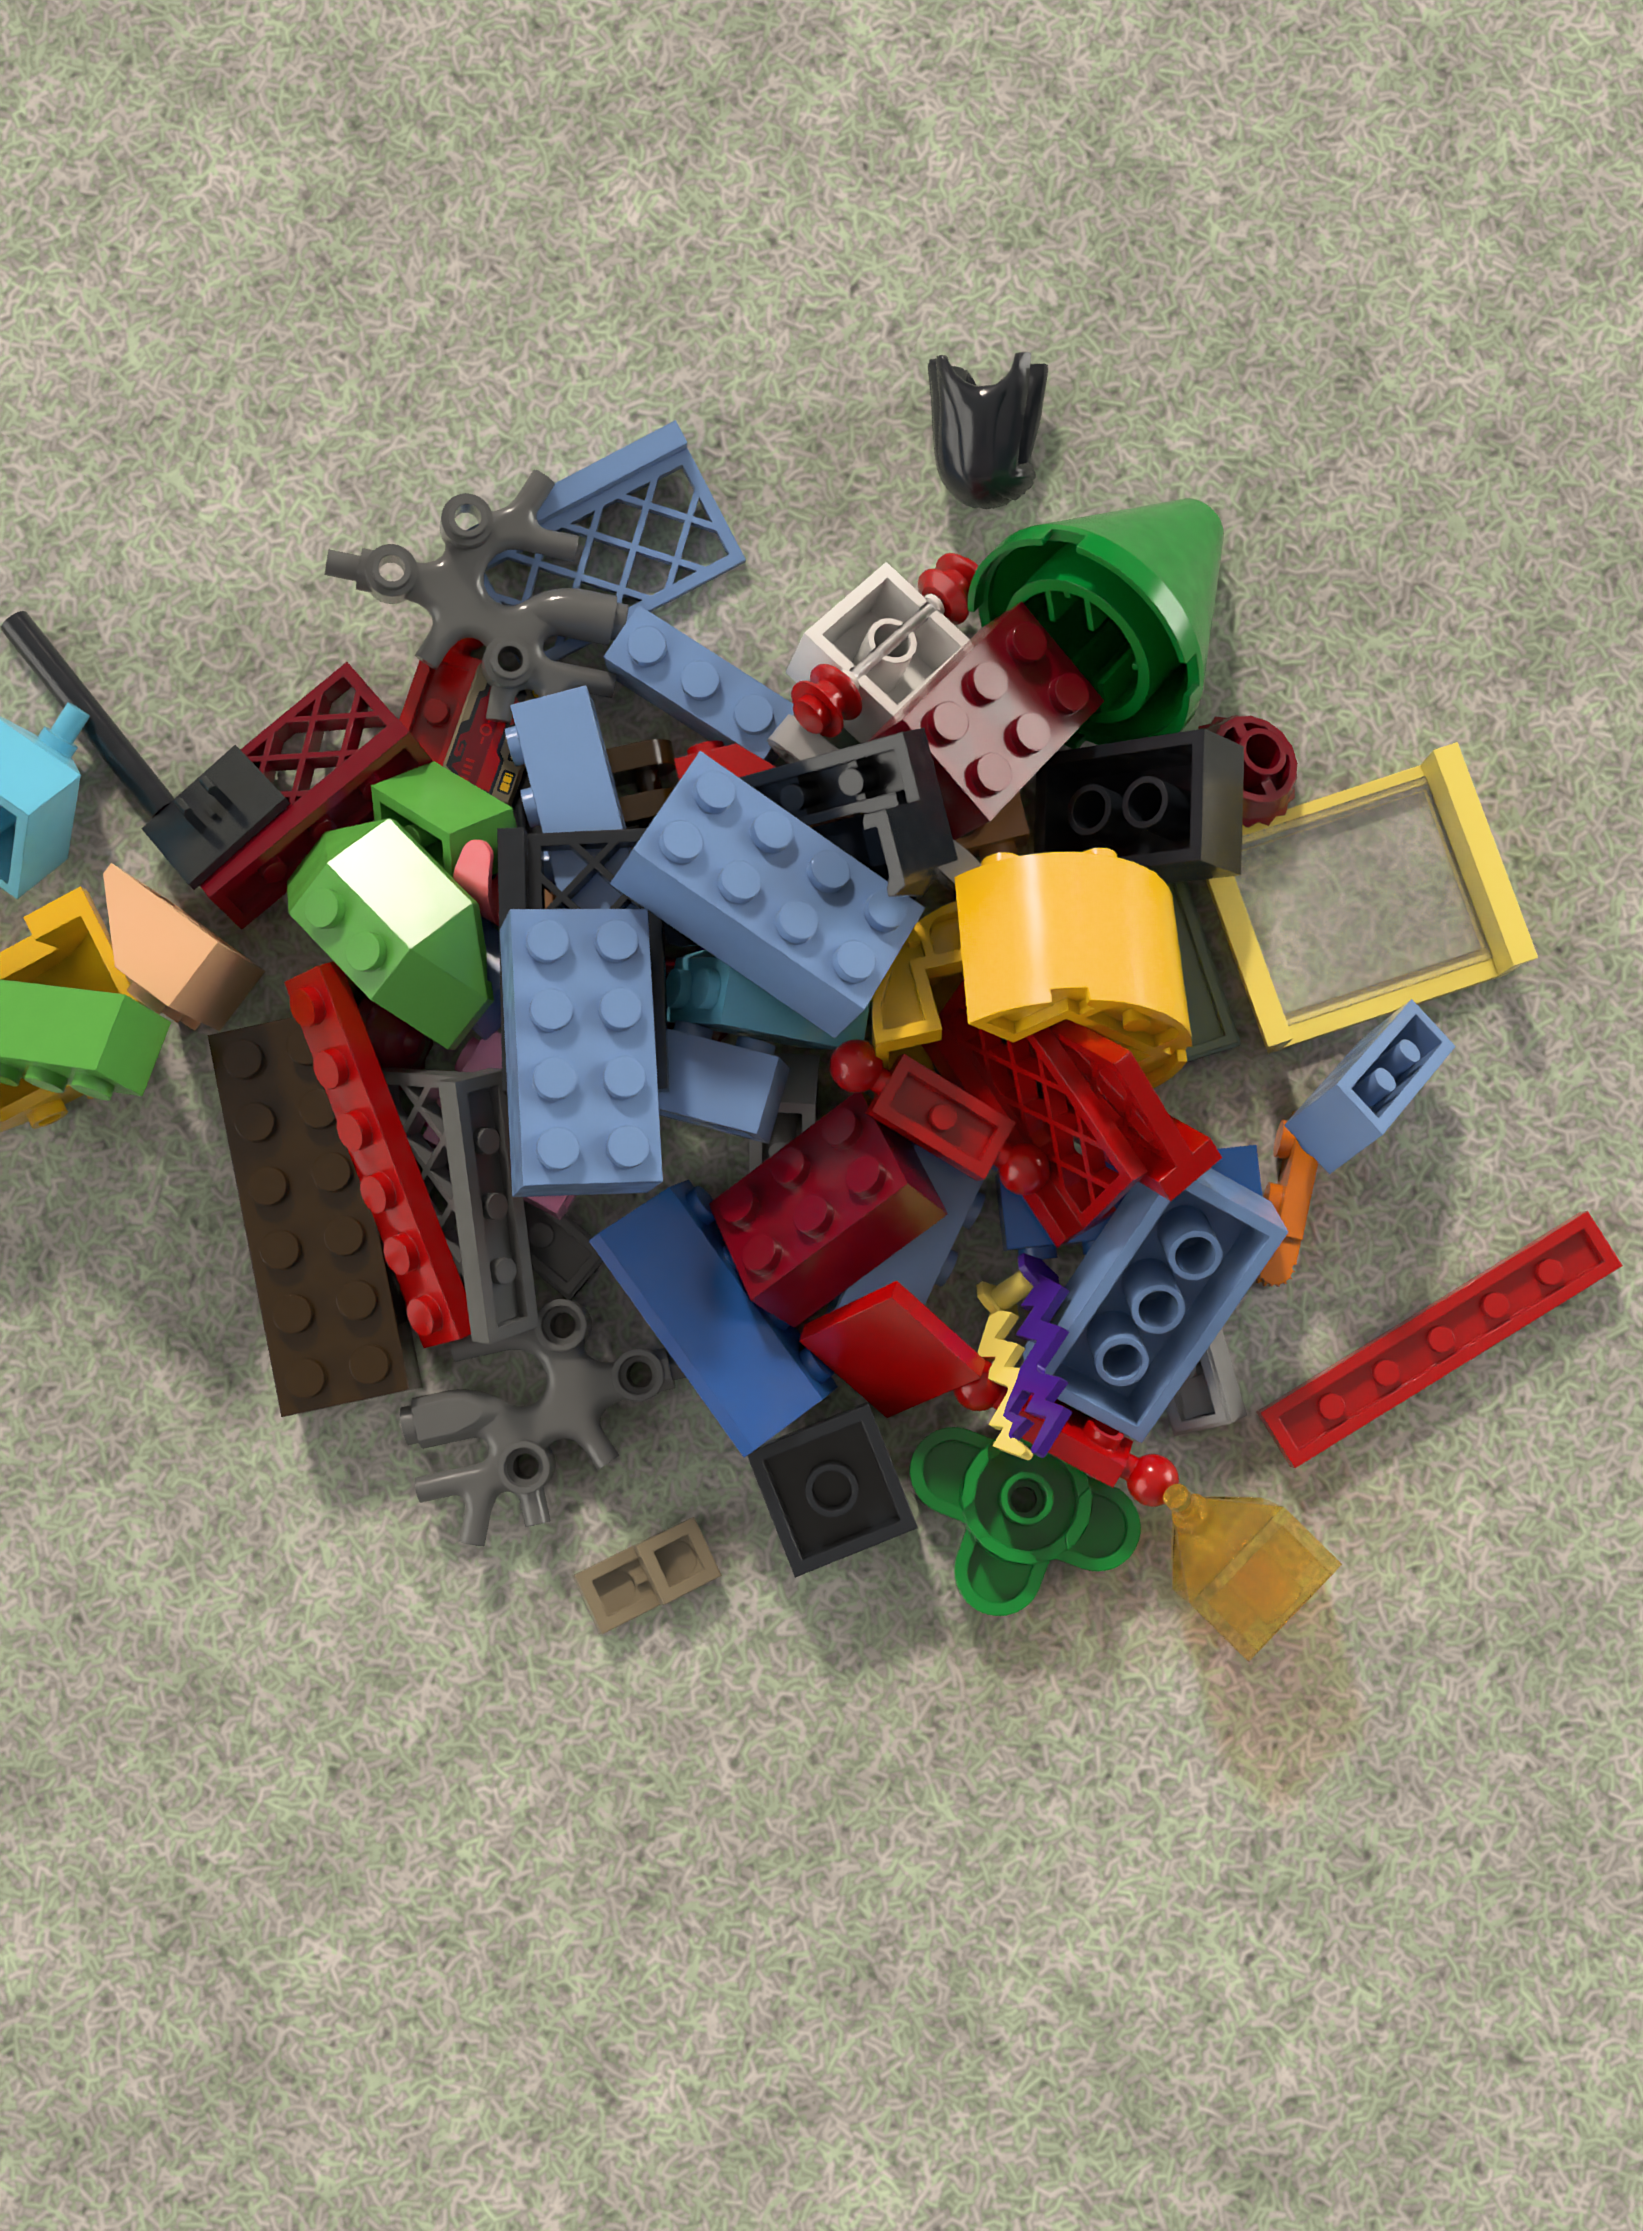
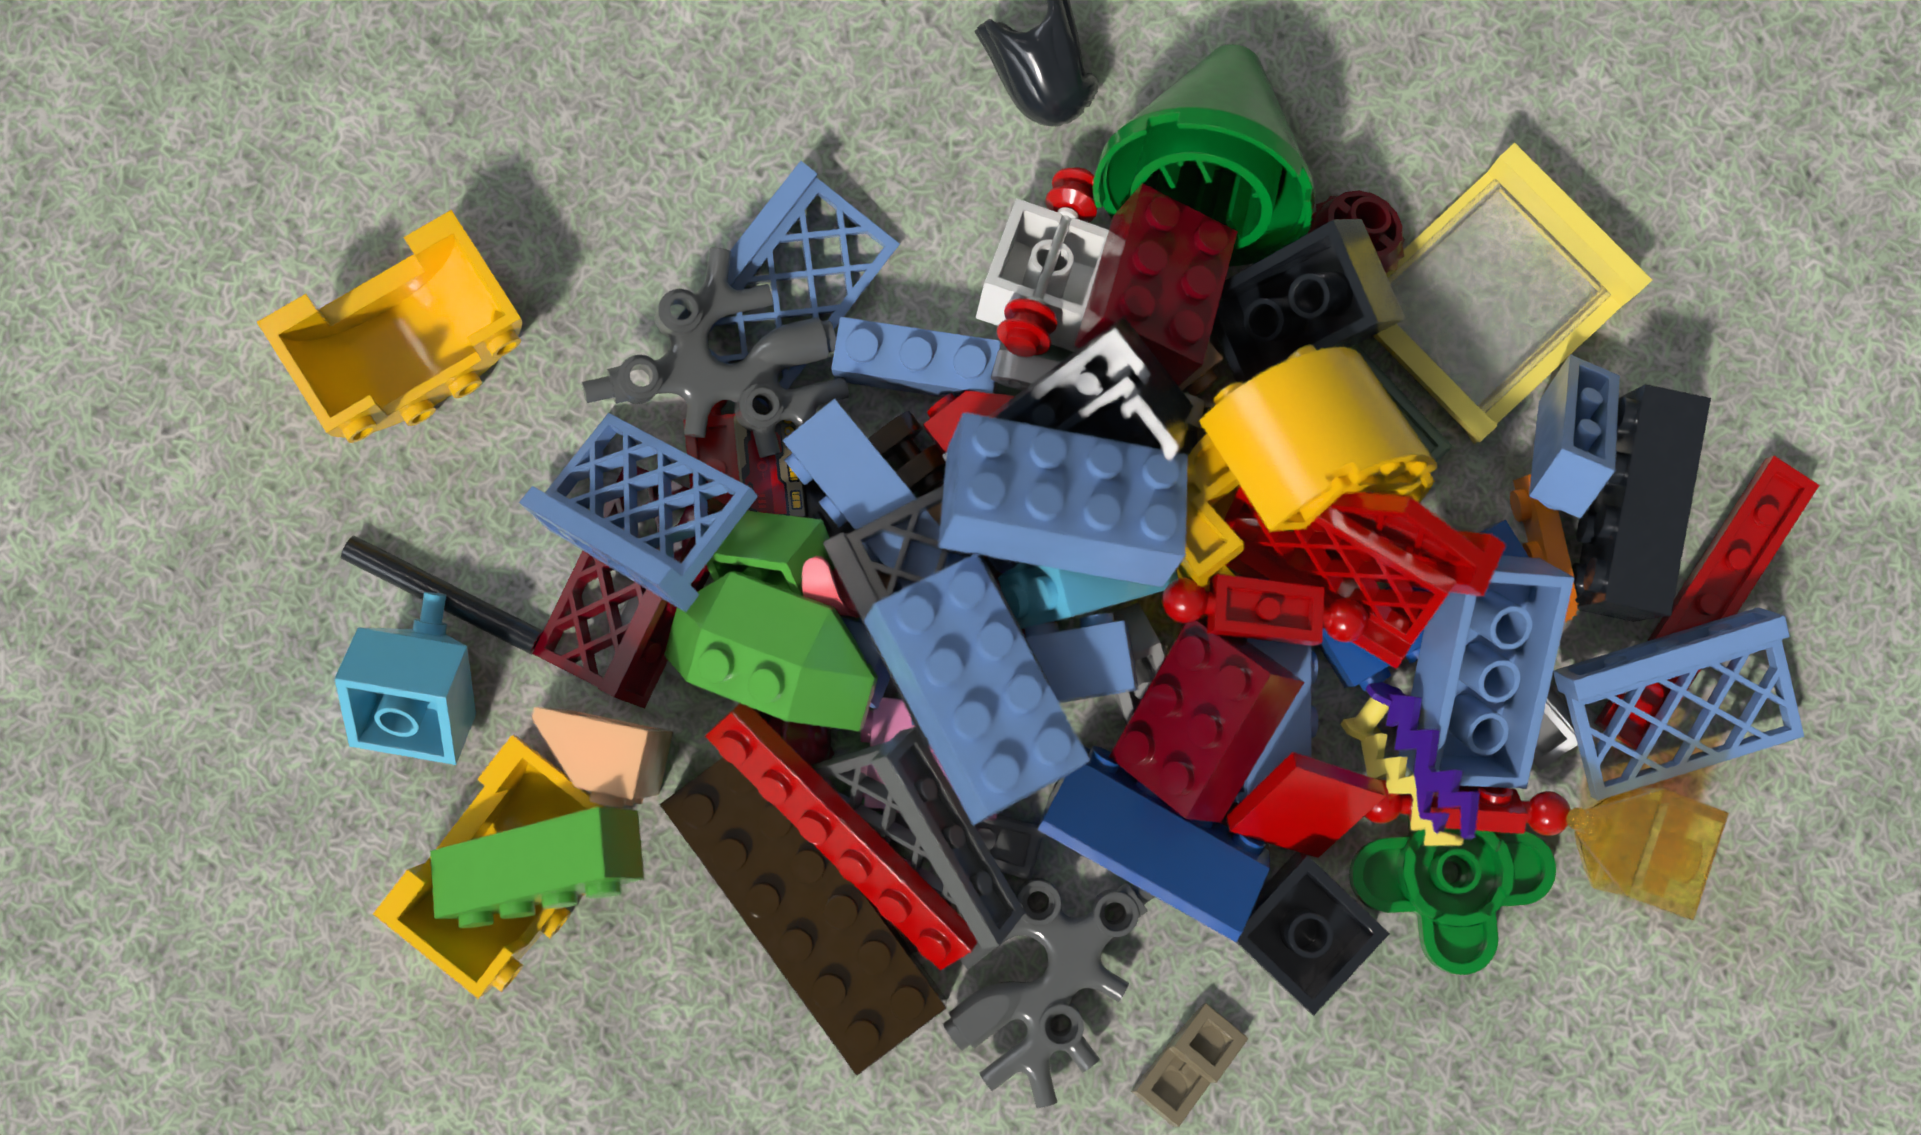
camera: 30 degrees left, 0 degrees up
(159, 422) = (399, 337): none -> yellow cylinder
(215, 817) = (584, 630): black piece -> none
(293, 746) = (622, 549): none -> medium blue fence
(1367, 1375) = (1681, 656): none -> medium blue fence
(1410, 1193) = (1642, 513): none -> black brick

